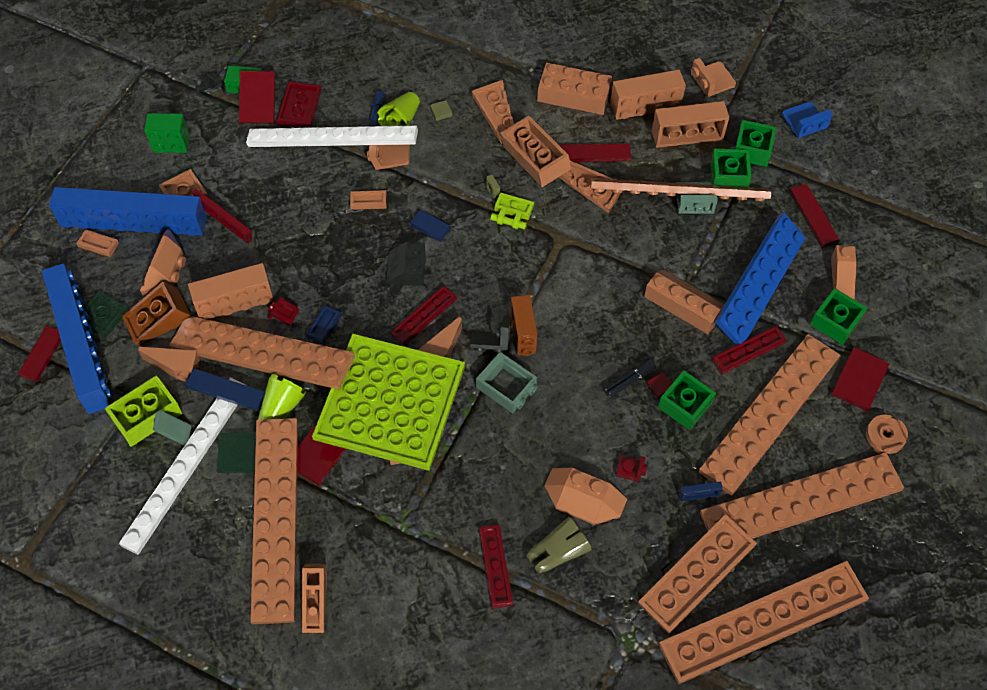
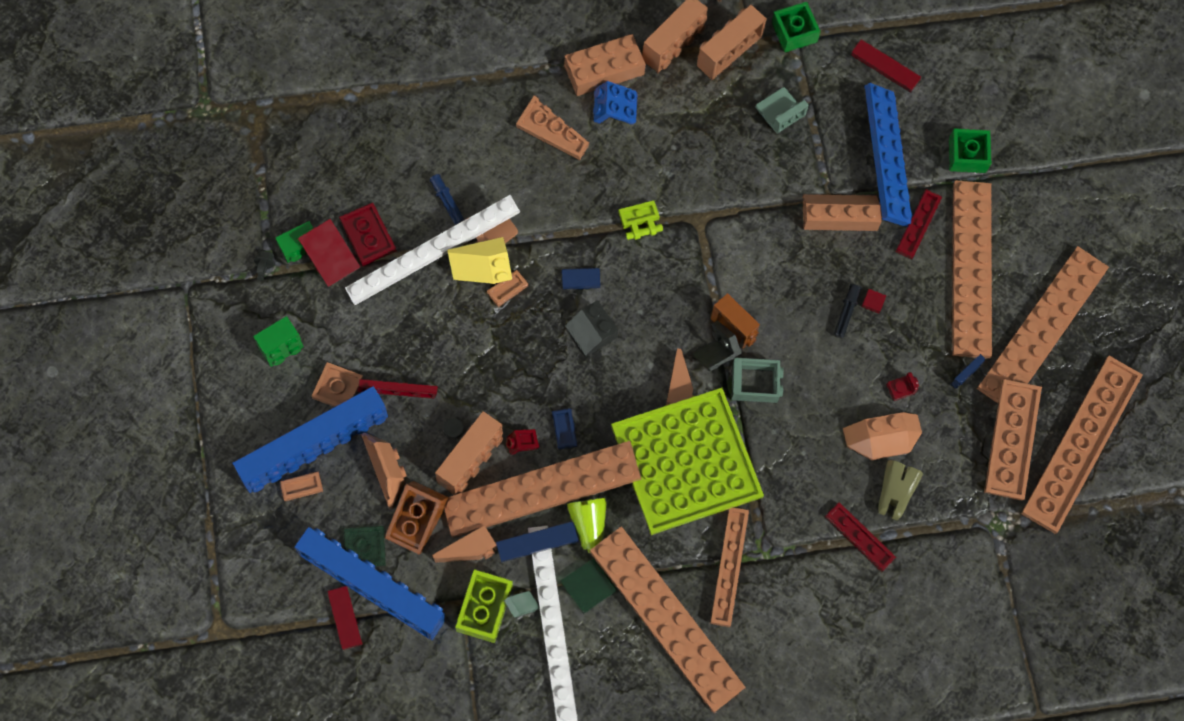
camera: 40 degrees left, 10 degrees up
(314, 597) = (746, 657): nougat slope -> none
(316, 458) = (655, 547): dark red tile -> none
(360, 165) = (481, 262): none -> light yellow slope
(362, 514) = (729, 567): none -> nougat plate
(399, 111) = (471, 187): lime cone -> none
(423, 315) = (640, 365): dark red tile -> none
(441, 110) = (501, 159): olive tile -> none
(493, 187) = (608, 208): olive tile -> none
(535, 151) = (622, 151): nougat brick -> none
(562, 119) = (615, 102): none -> blue bracket
(579, 179) = (685, 151): nougat wing -> none
(598, 152) = (666, 118): dark red tile -> none
(671, 189) = (766, 111): plate -> none
(686, 400) = (906, 302): green brick -> none
(730, 167) = (794, 65): green brick -> none
(844, 269) = (945, 106): nougat slope -> none
(860, 379) = (1018, 194): dark red tile -> none
(879, 442) = (1064, 239): nougat plate -> none

